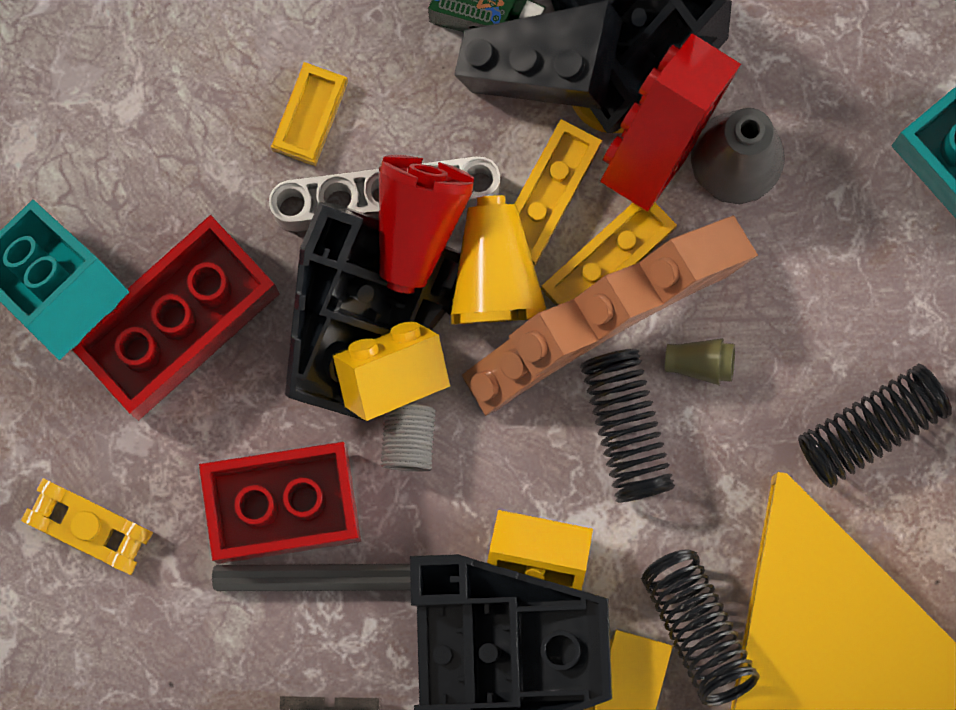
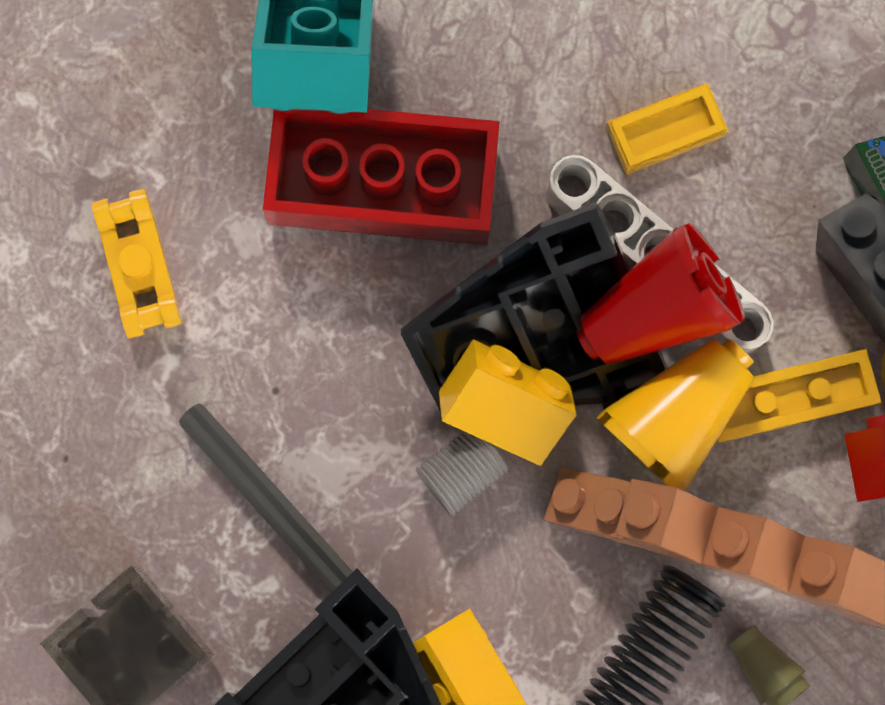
camera: 40 degrees right, 0 degrees up
(279, 503) = (303, 410): red brick -> none
(617, 246) = (795, 501): yellow plate -> none

